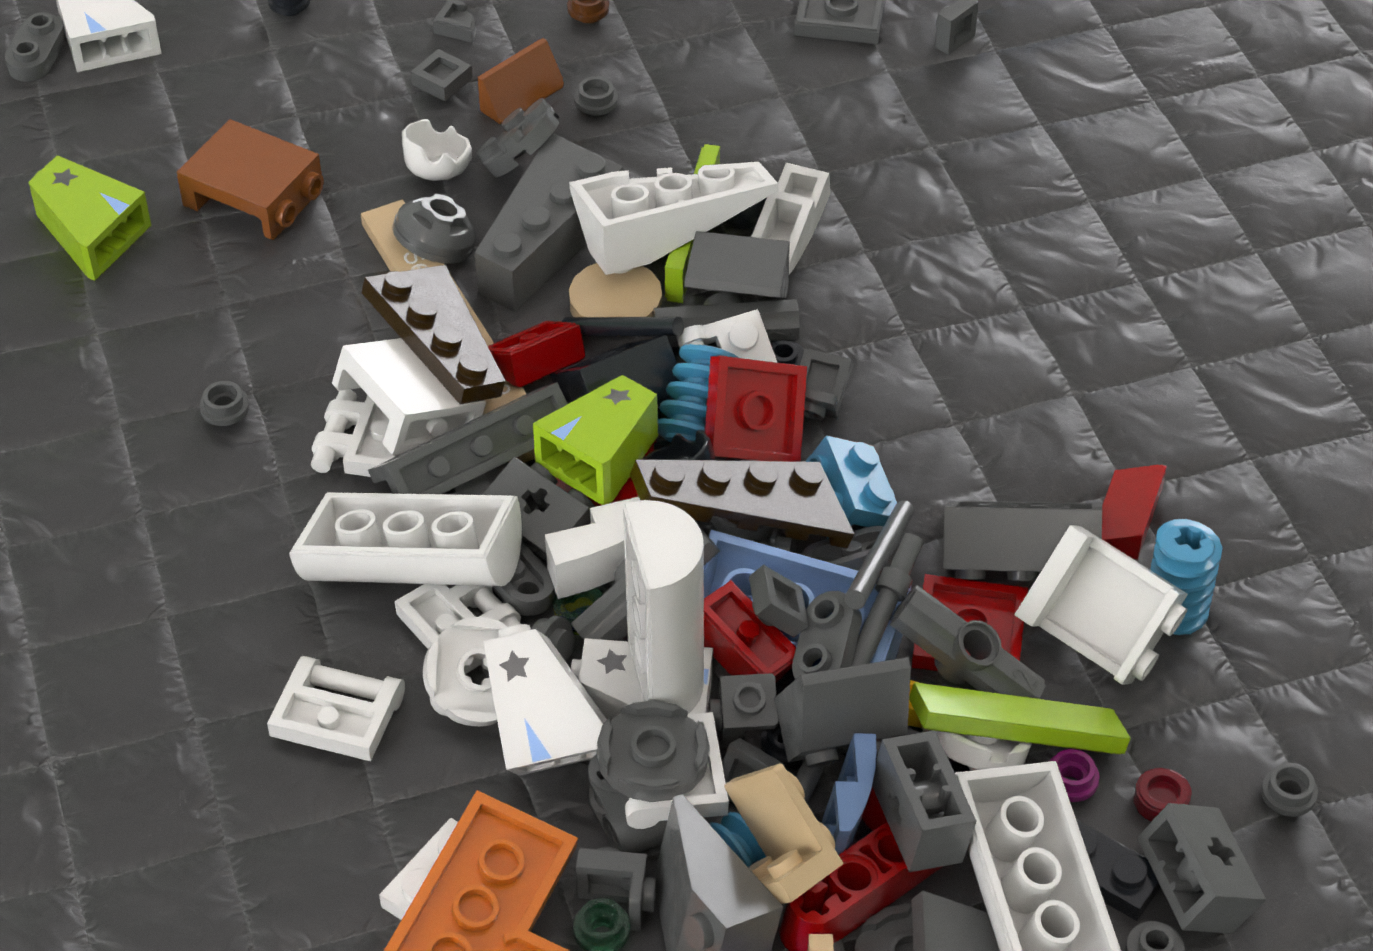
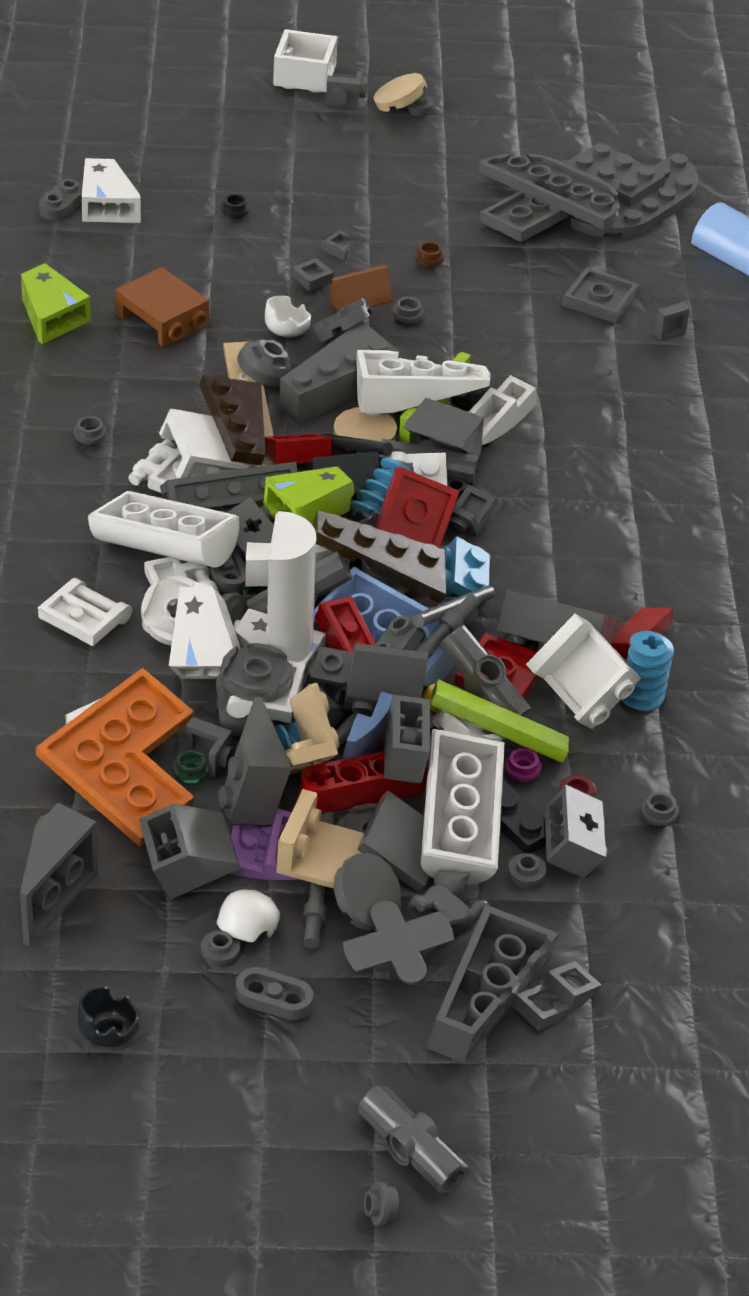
camera: 15 degrees right, 5 degrees down
(778, 601) = (373, 613): dark grey plate -> none

